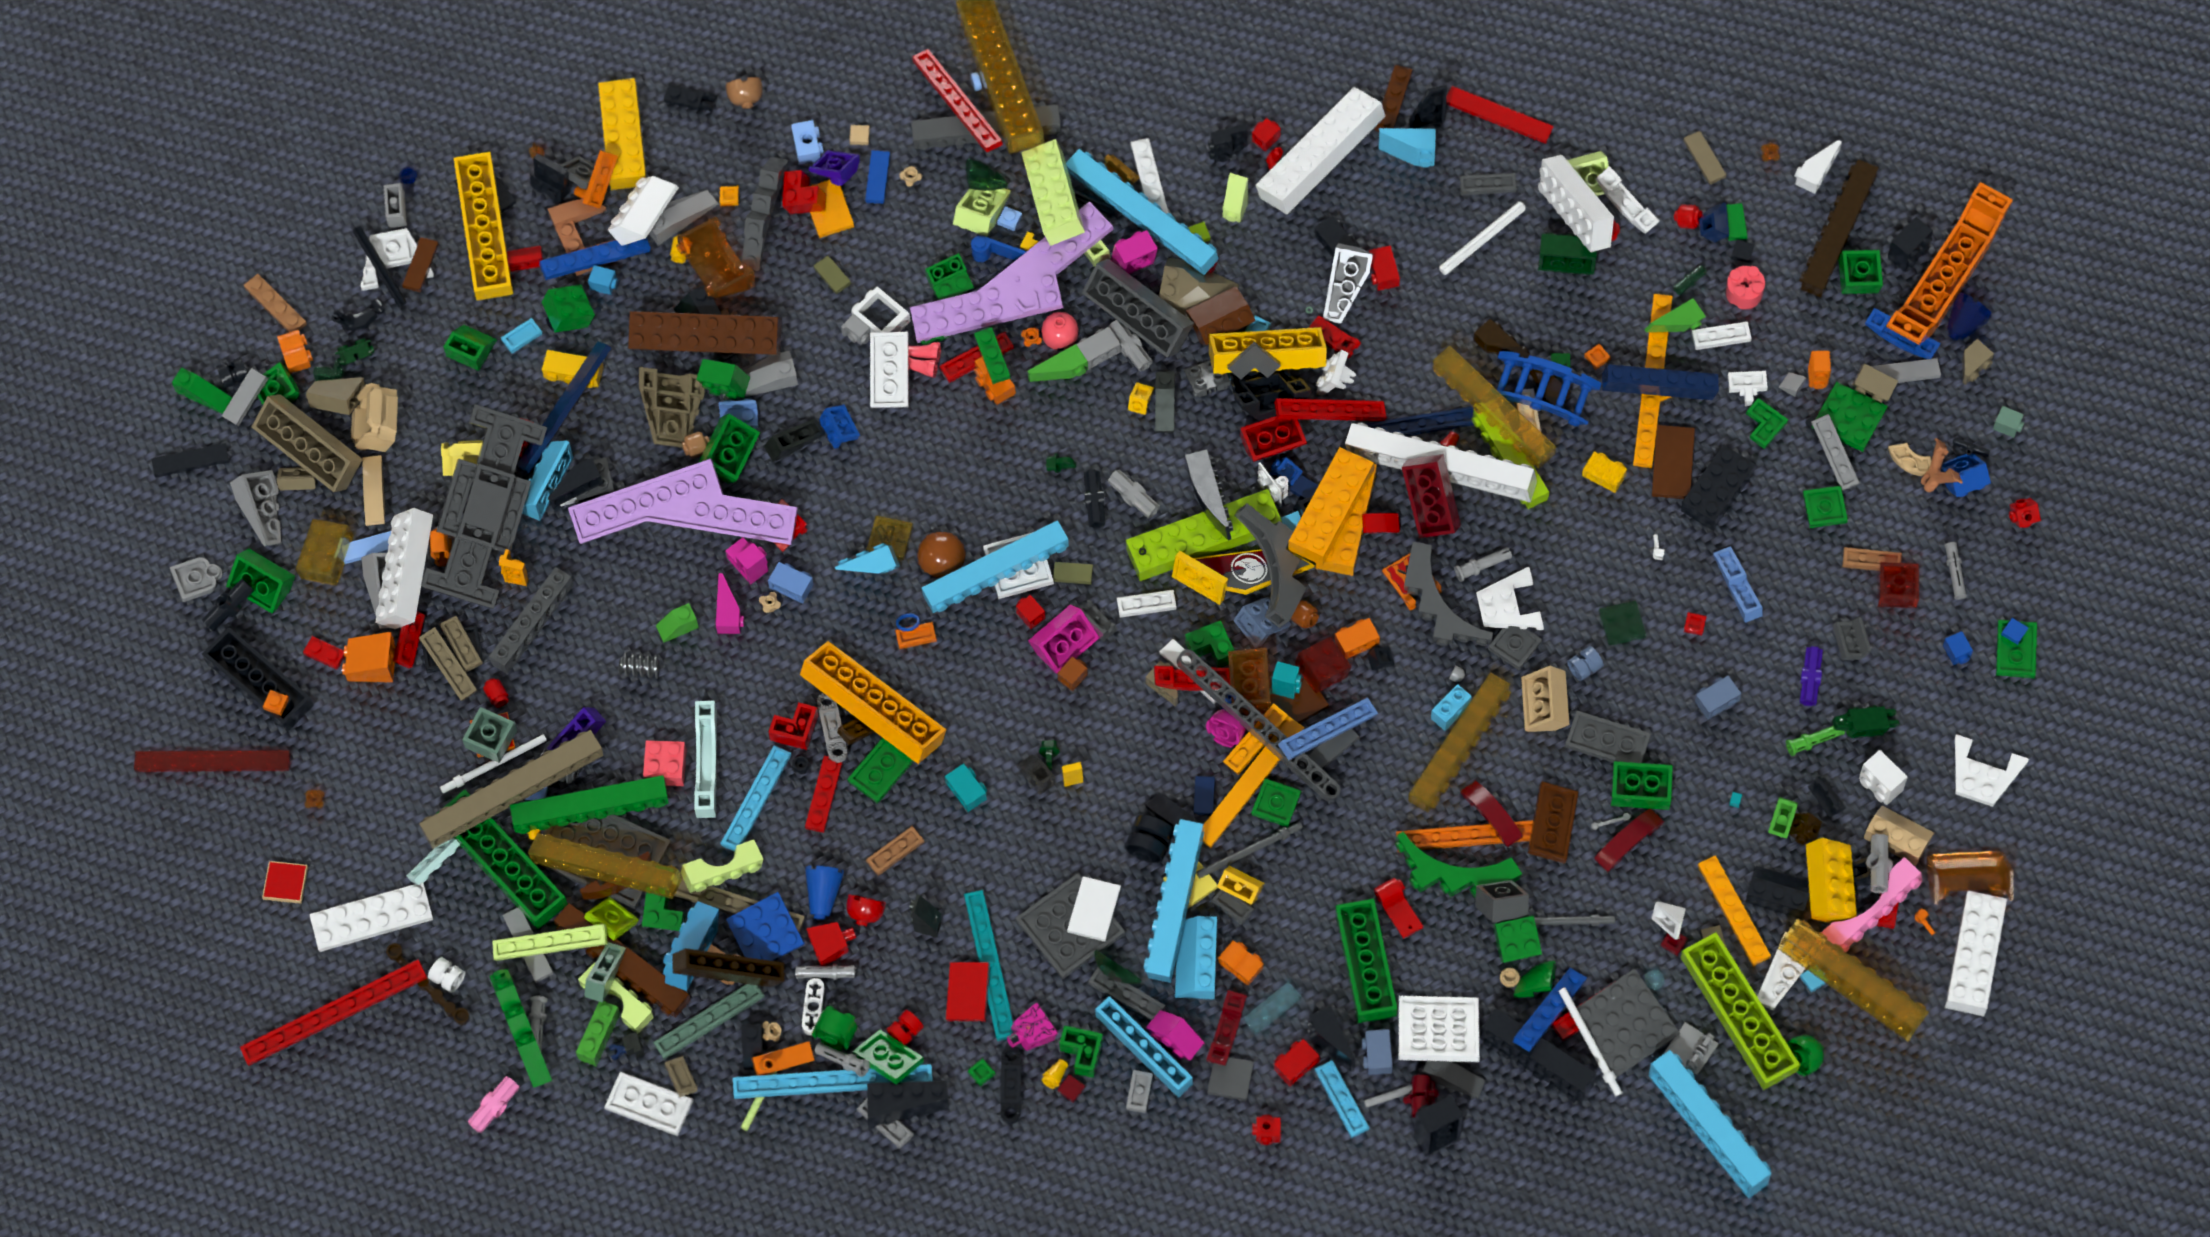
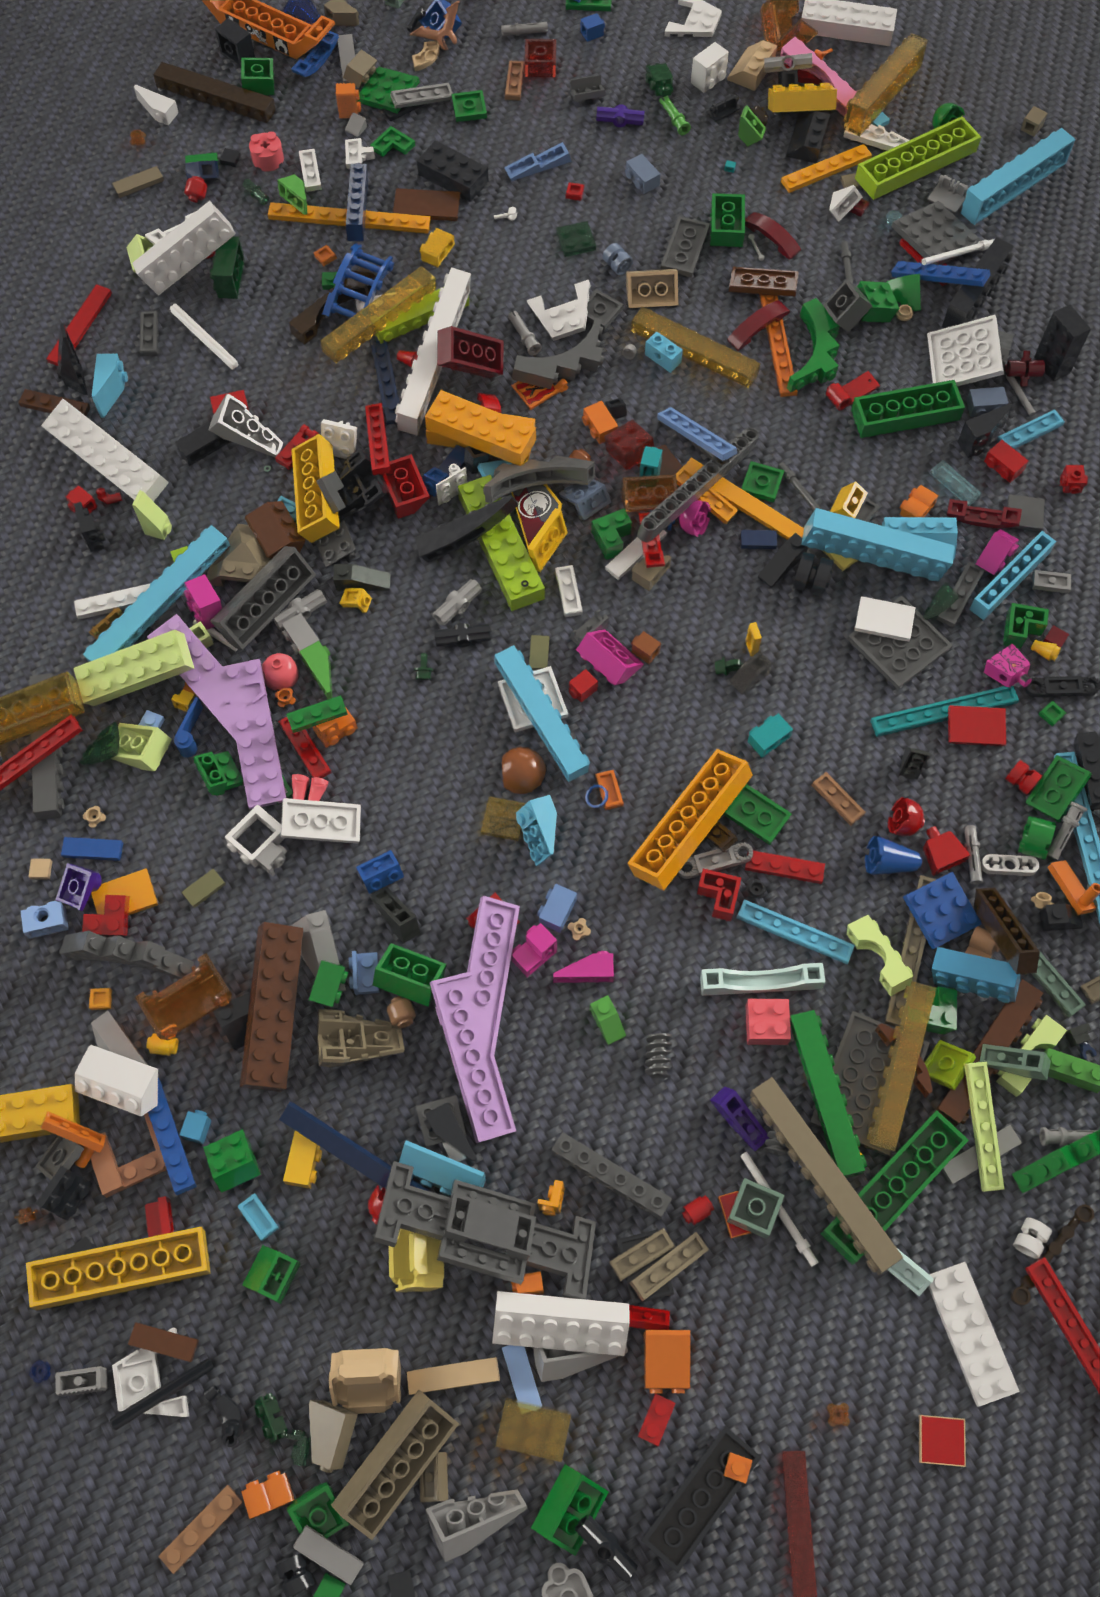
camera: 95 degrees left, 0 degrees up
(1810, 1163) = (1034, 121): none -> dark tan brick

